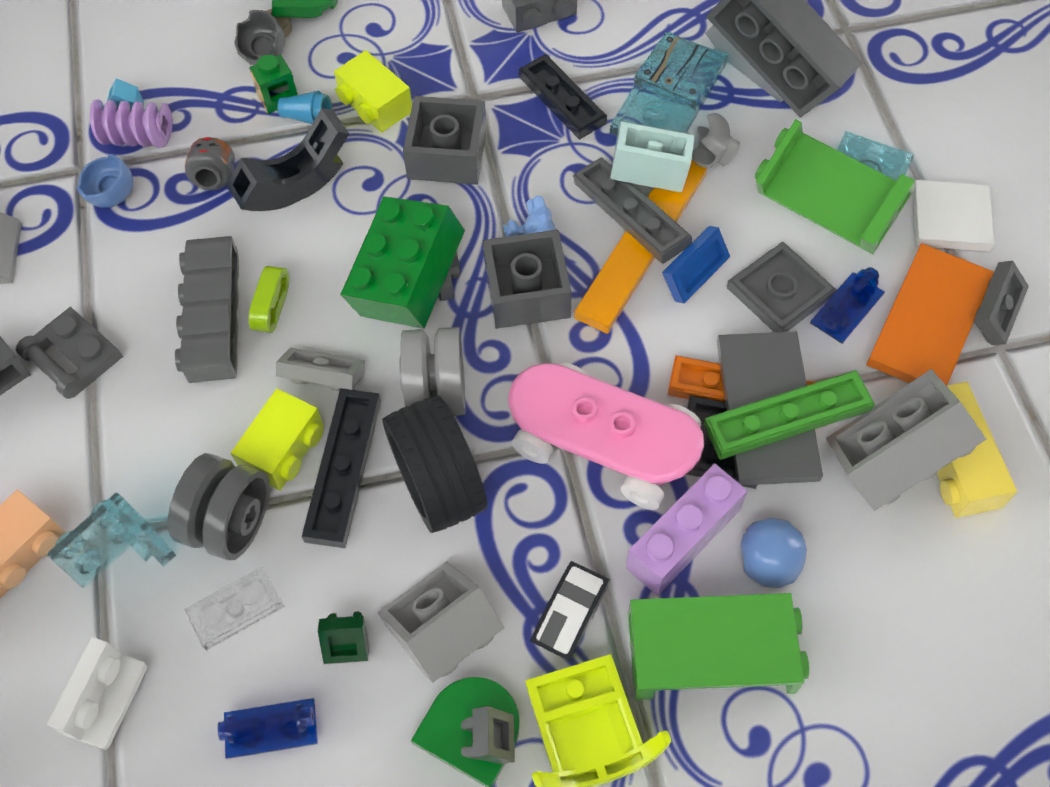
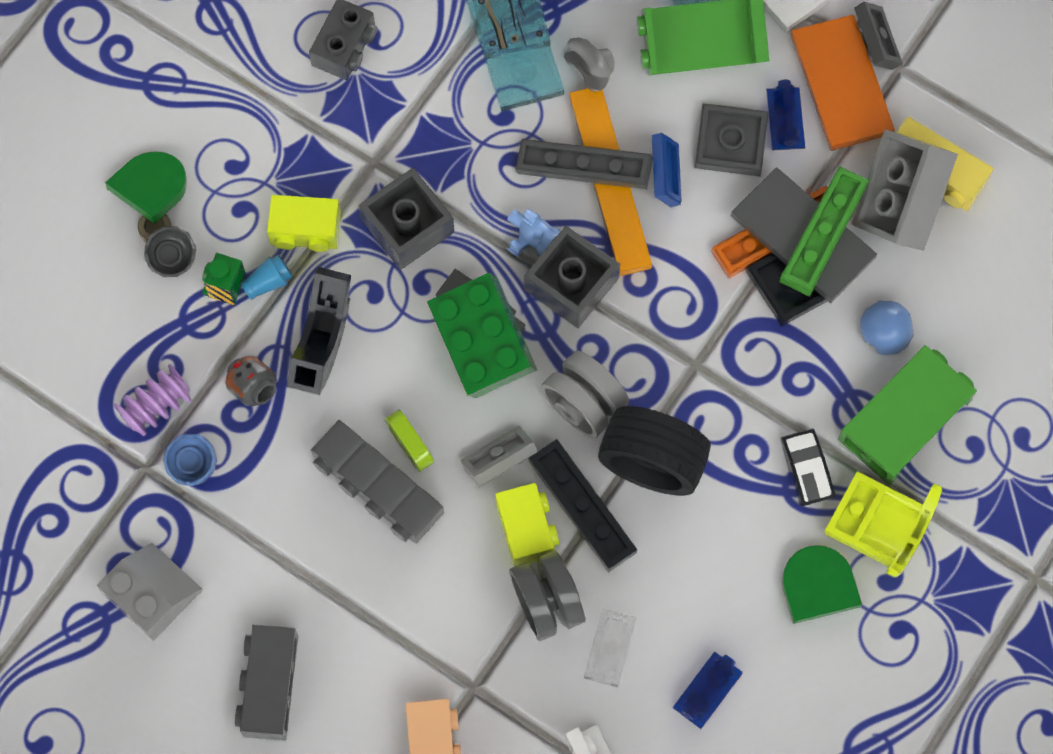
camera: 45 degrees left, 10 degrees up
(78, 343) = (311, 585): dark grey plate -> none
(104, 537) = (509, 654): clear light blue bracket -> none
(124, 91) = (117, 386): medium azure piece -> none
(343, 638) = (698, 602): dark green tile -> none
(442, 621) = (741, 540): light grey slope -> none
(491, 736) = (841, 575): dark grey tile -> none
(562, 96) = (440, 109): black tile -> none
(605, 426) = (725, 335): bright pink piece -> none
(652, 156) = (564, 109): light aqua slope -> none
(685, 529) = (829, 358): lavender brick -> none

